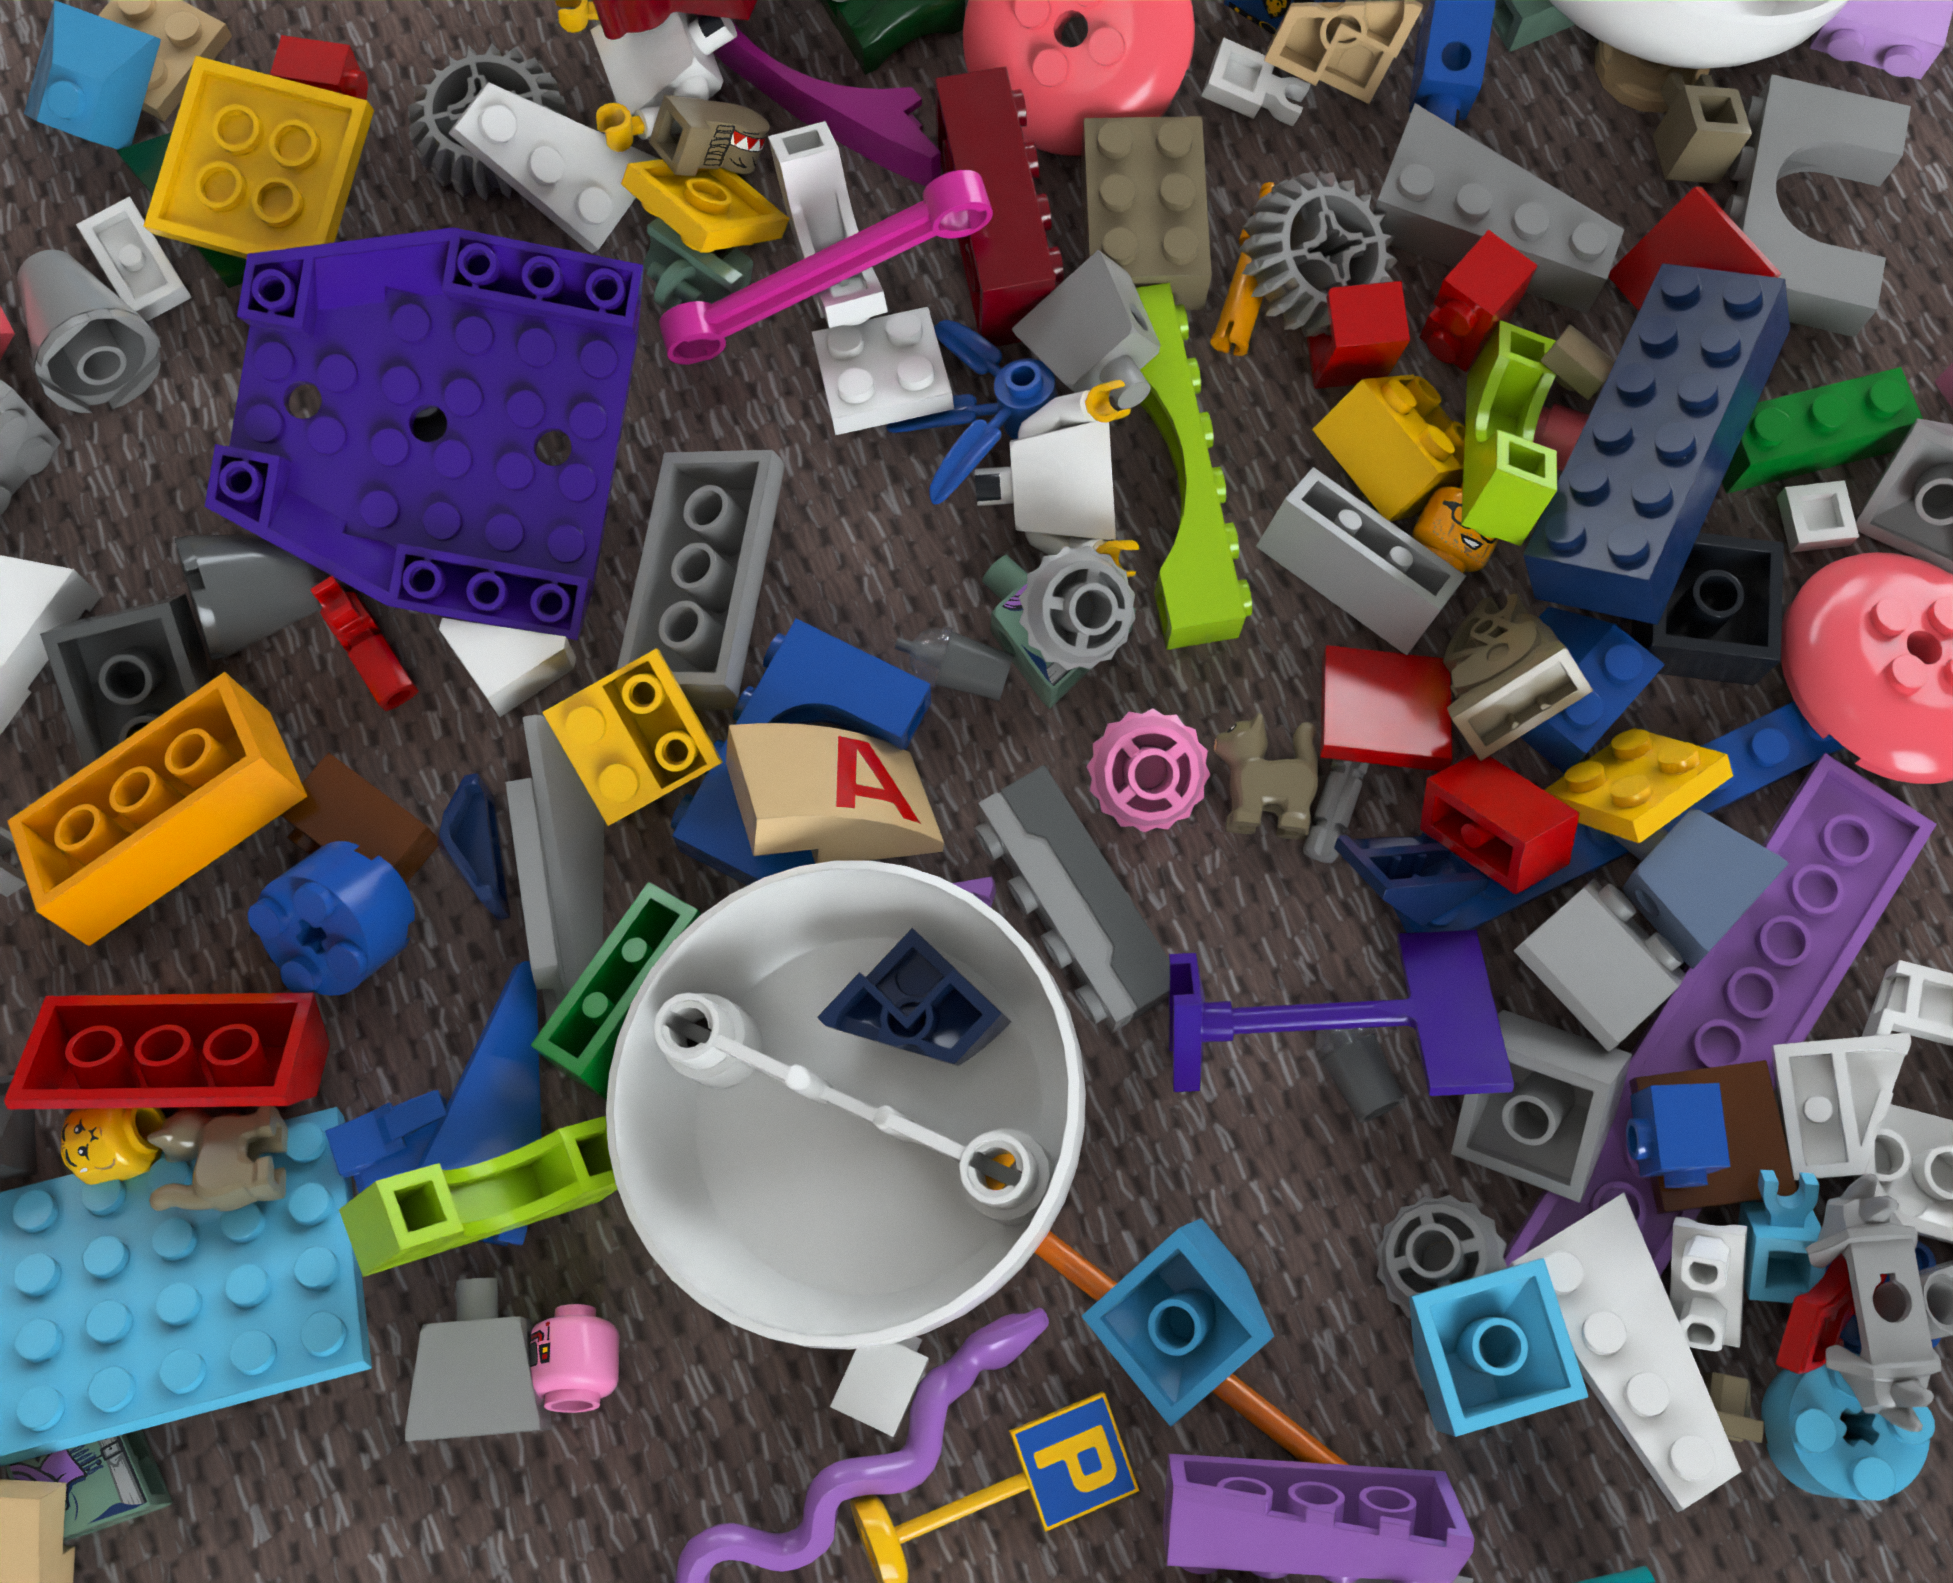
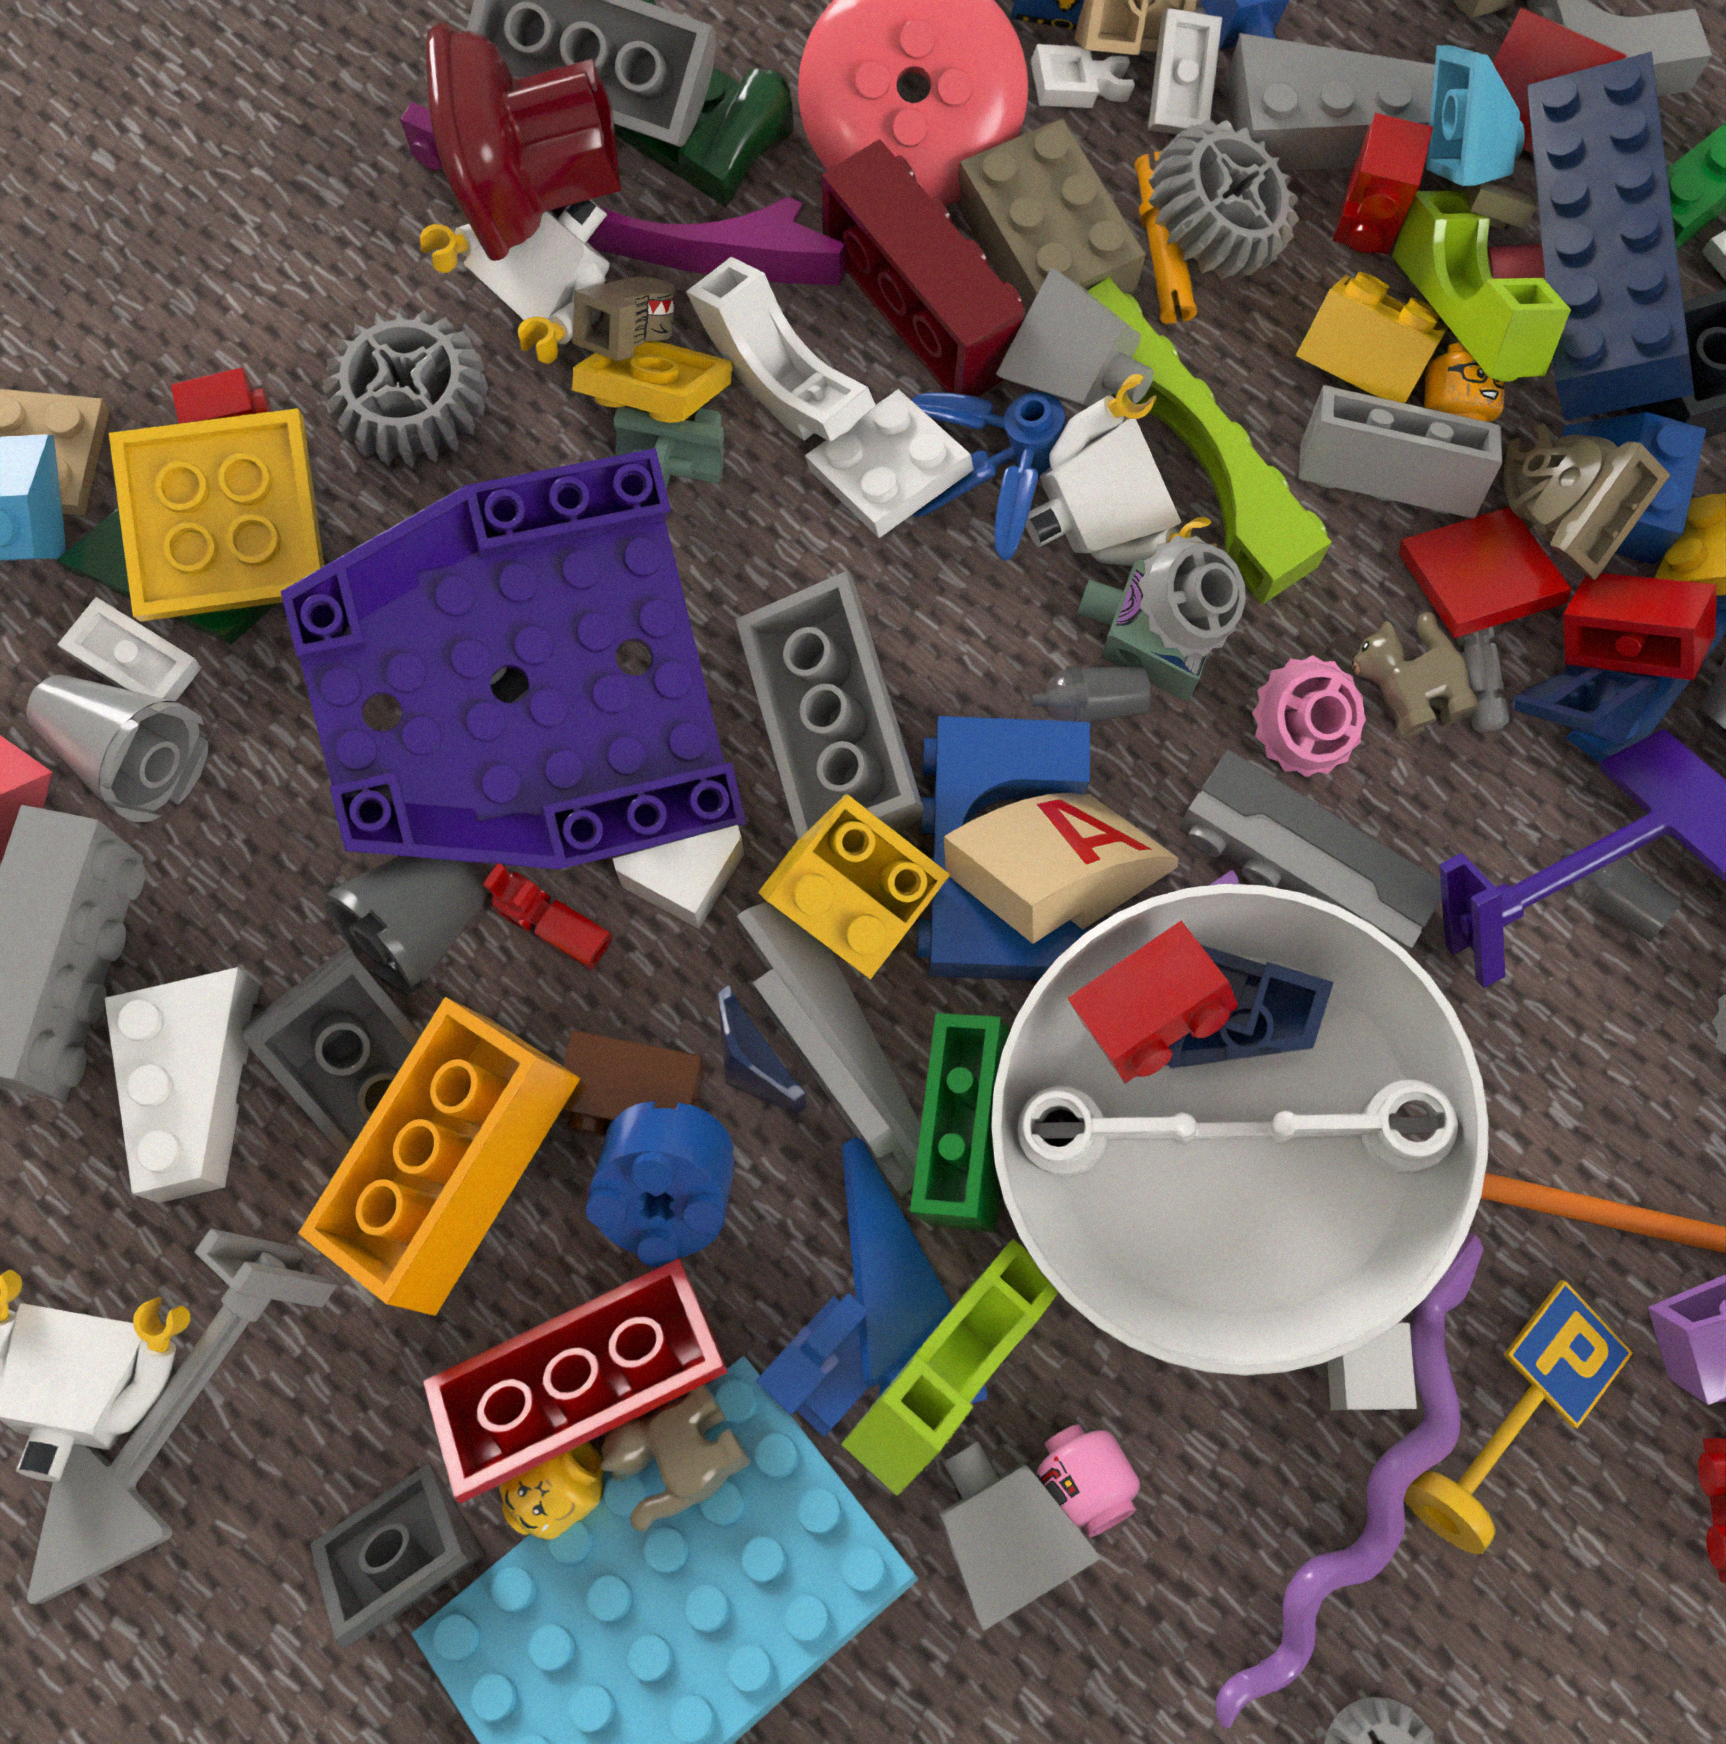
camera: 25 degrees left, 0 degrees up
(550, 162) = (492, 397): white wing -> none
(827, 954) = (1153, 1002): none -> red brick
(950, 208) = (902, 286): dark pink piece -> none
(1182, 1320) = (1606, 1184): dark azure slope -> none
(1352, 119) = (1184, 70): none -> white plate
(1366, 334) = (1313, 244): red panel -> none
(1586, 281) = (1471, 119): none -> medium azure slope

